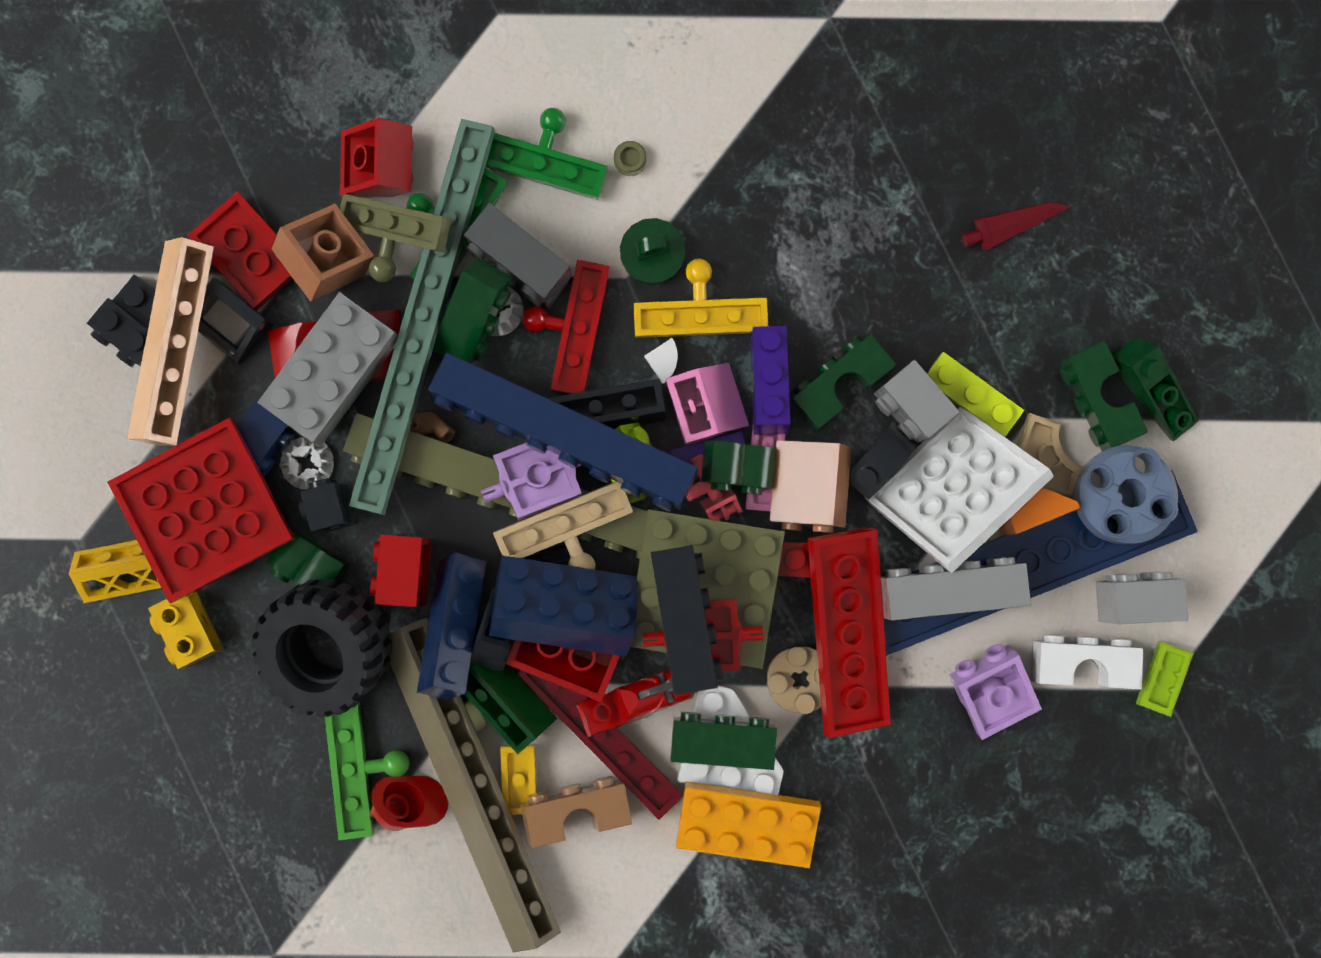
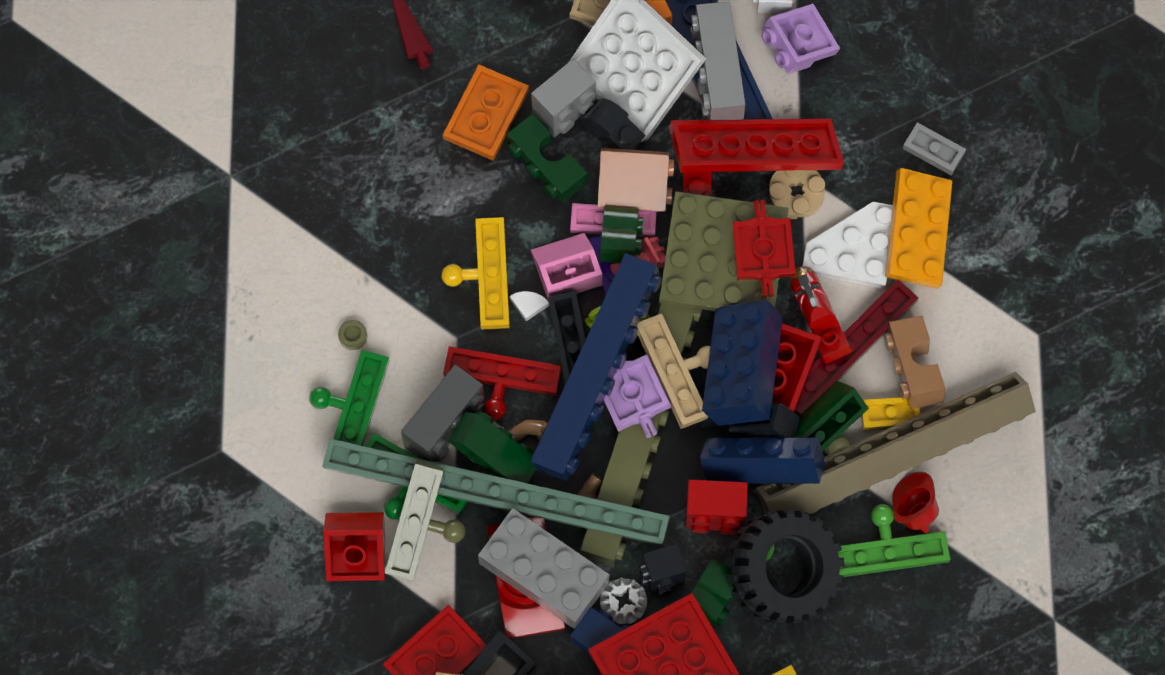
camera: 90 degrees left, 15 degrees down
(322, 252) = (440, 581): nougat brick -> none
(513, 358) = (528, 427): none -> medium nougat arm
(652, 251) = (434, 314): dark green tile -> none
(684, 620) = (751, 256): black brick -> none
(723, 741) = (850, 243): dark green brick -> none
(771, 380) = (565, 209): dark purple arch -> none
(850, 848) = (934, 149): none -> light grey plate
(903, 311) = (485, 112): none -> orange plate
(974, 394) = (555, 55): neon yellow plate -> none

